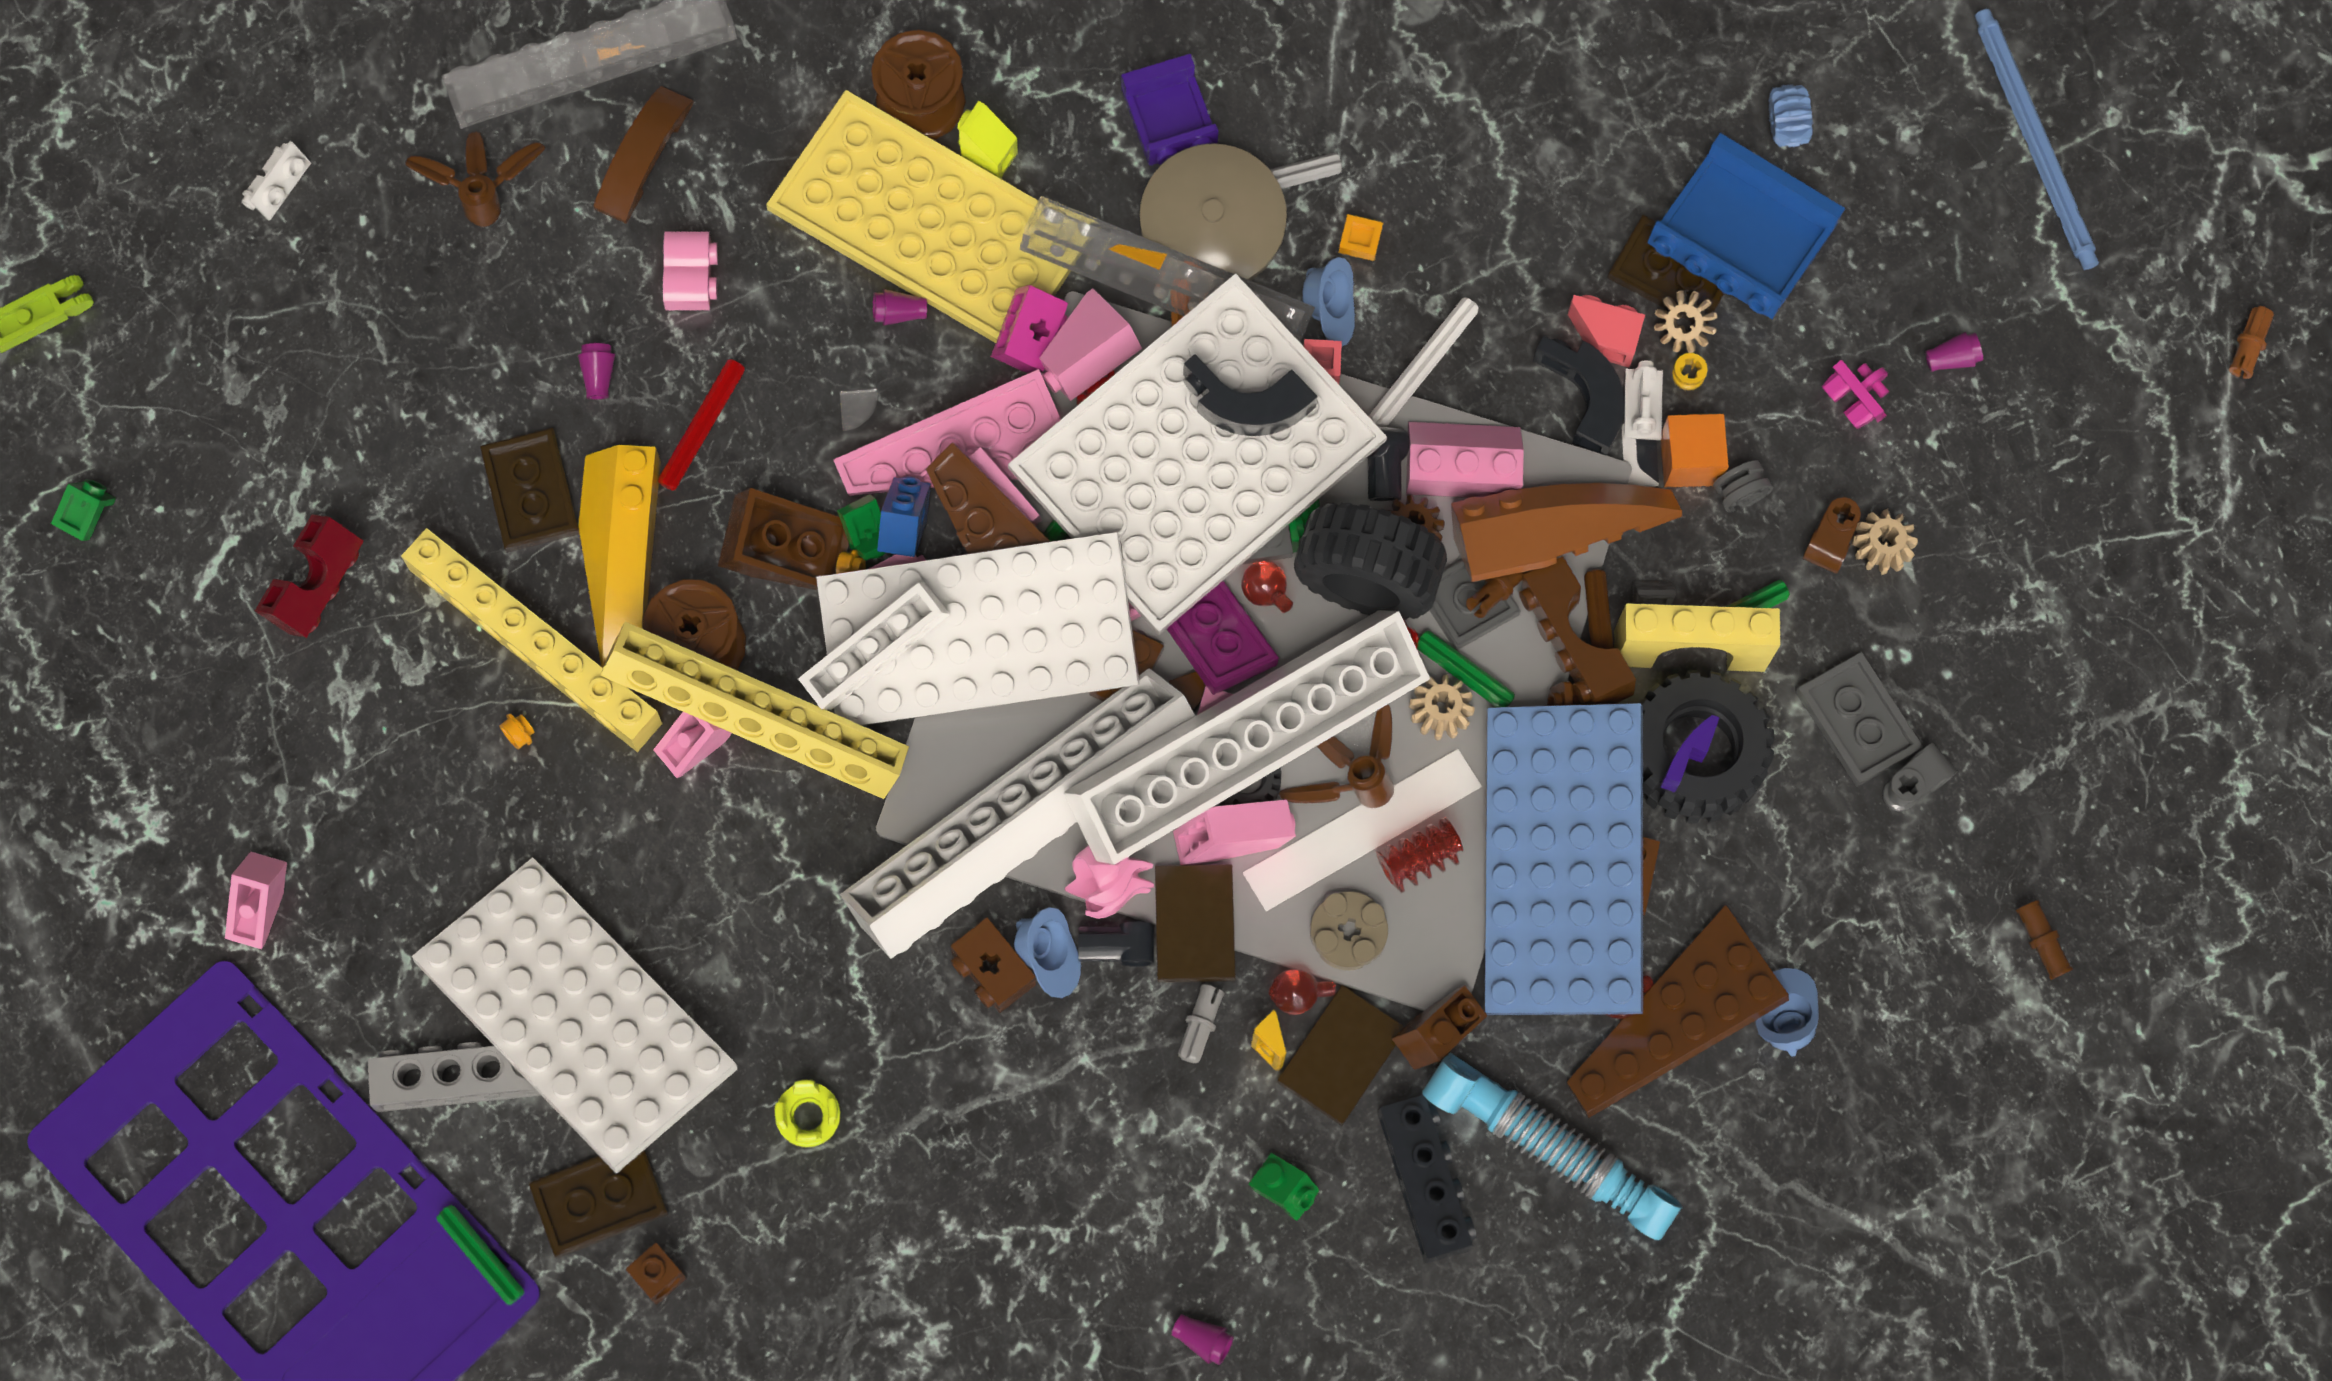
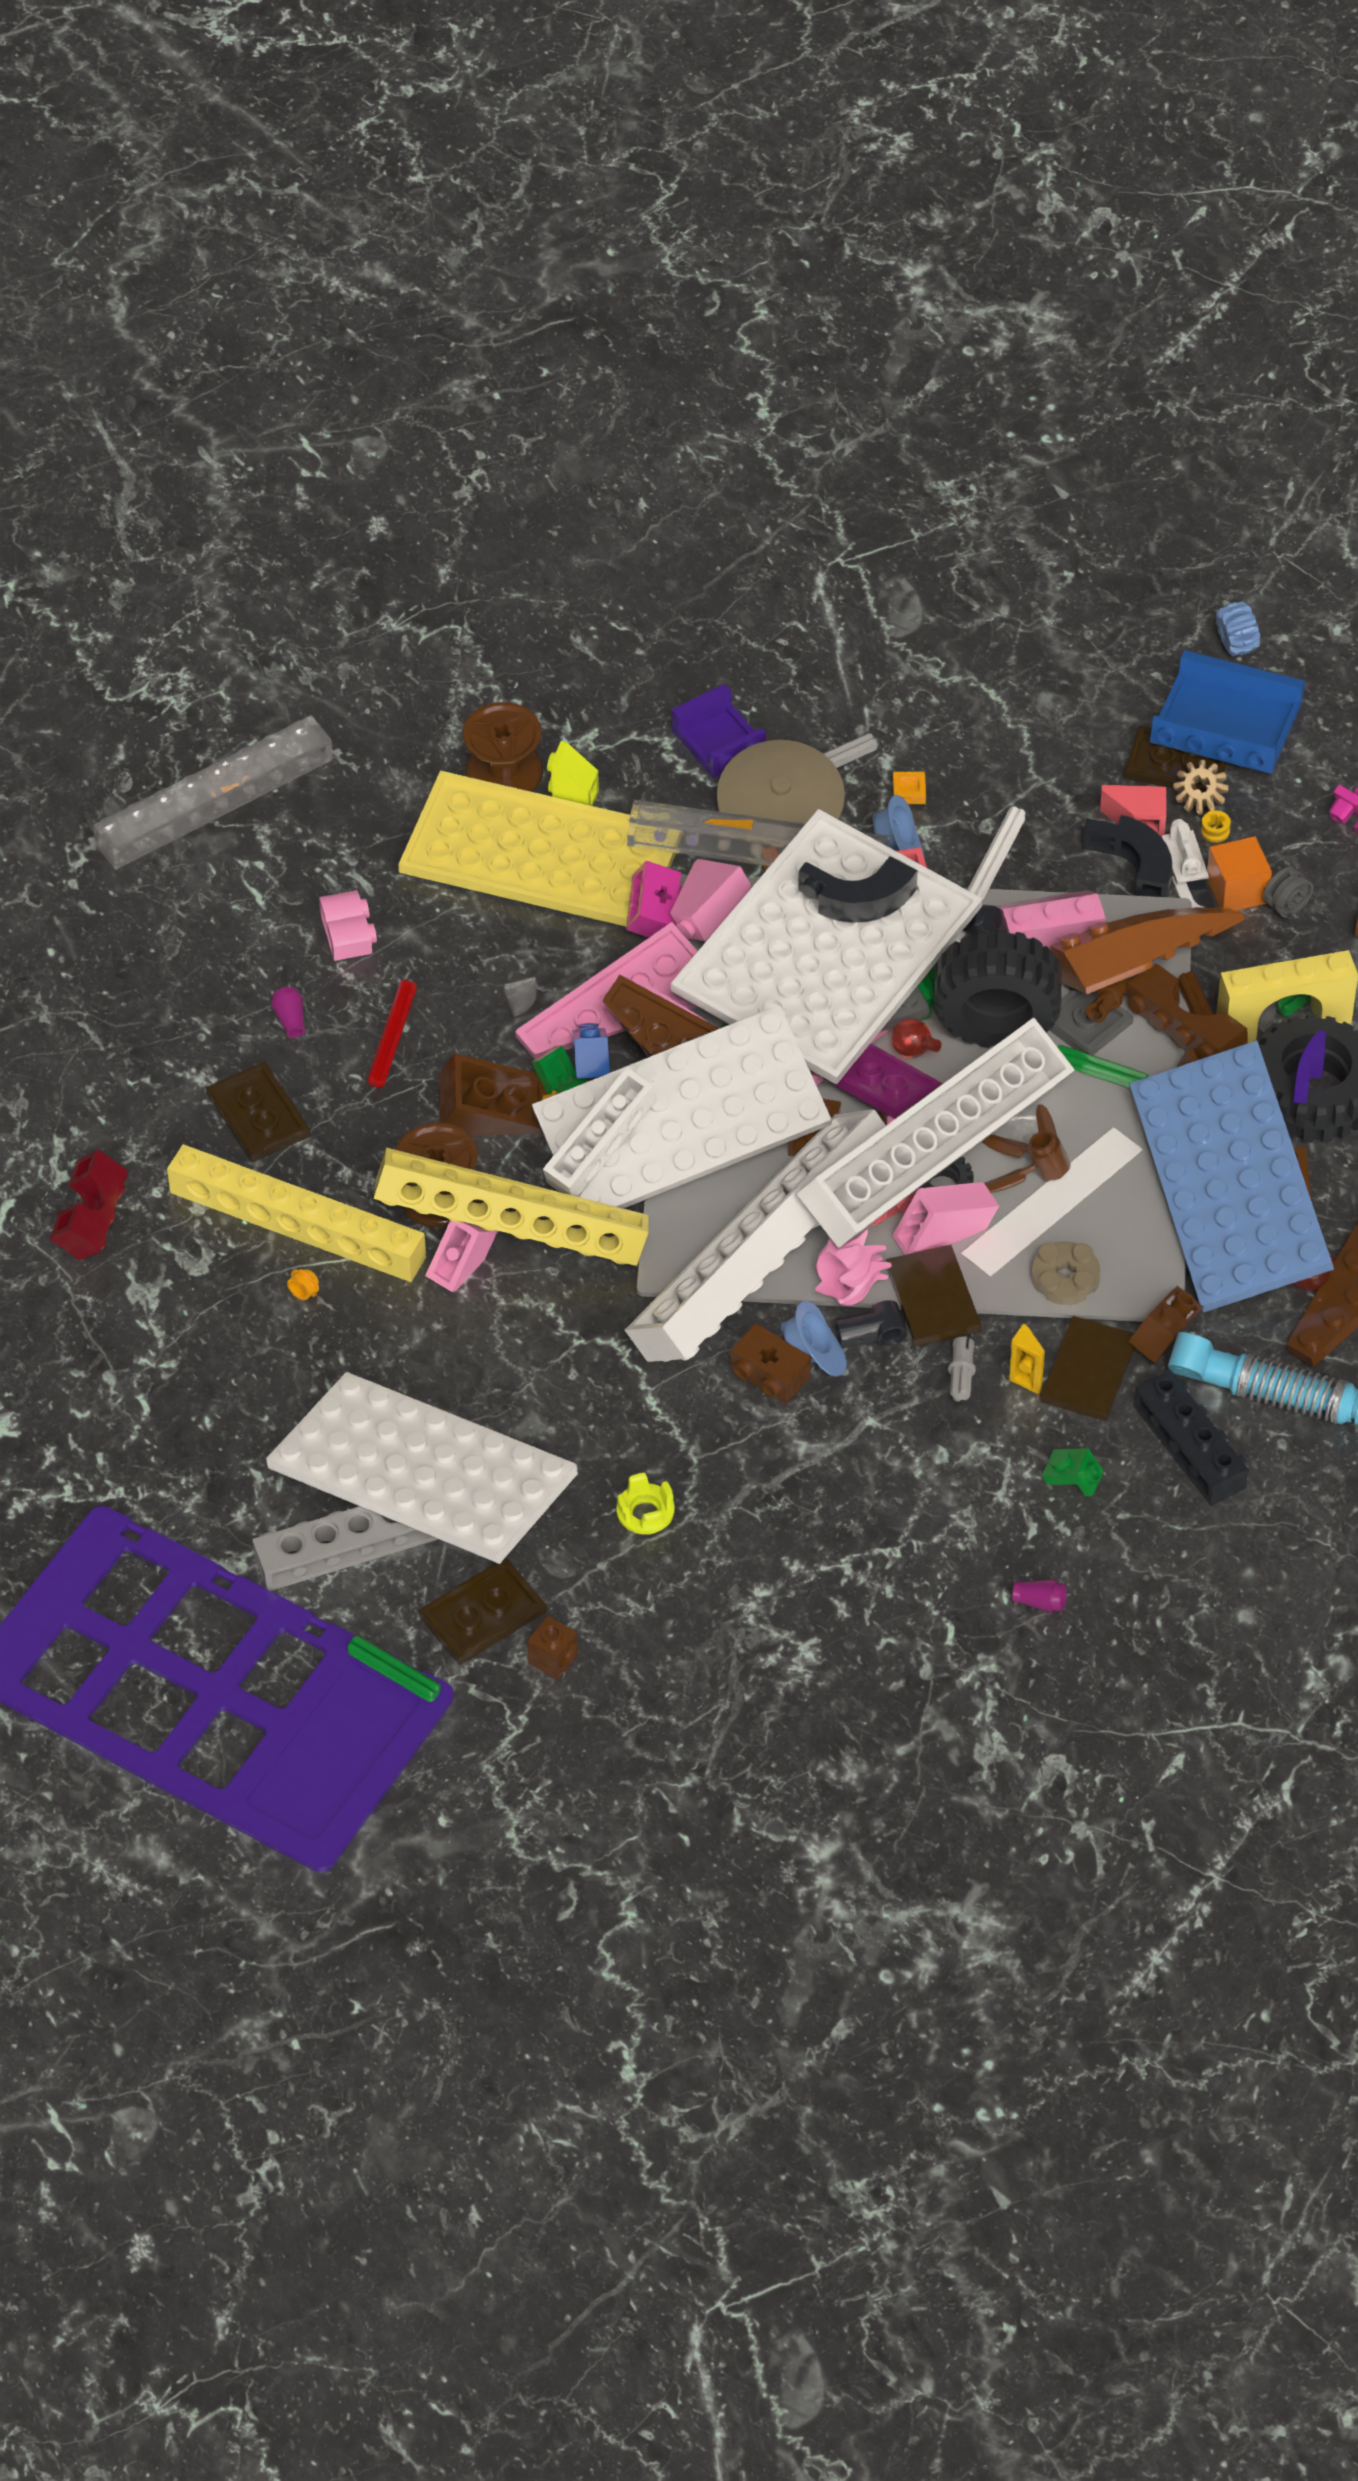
camera: 10 degrees left, 20 degrees down
(254, 899) = (113, 1453): bright pink slope -> none
(478, 191) = (149, 900): reddish brown plant -> none
(618, 536) = (346, 1125): yellow wedge -> none
(639, 152) = (276, 855): reddish brown slope -> none
(897, 307) = (532, 916): magenta cone -> none
(1298, 991) = (1040, 1322): clear red piece -> none
(1421, 854) = (1109, 1200): clear red piece -> none
(1455, 703) = (1090, 1095): tan gear -> none

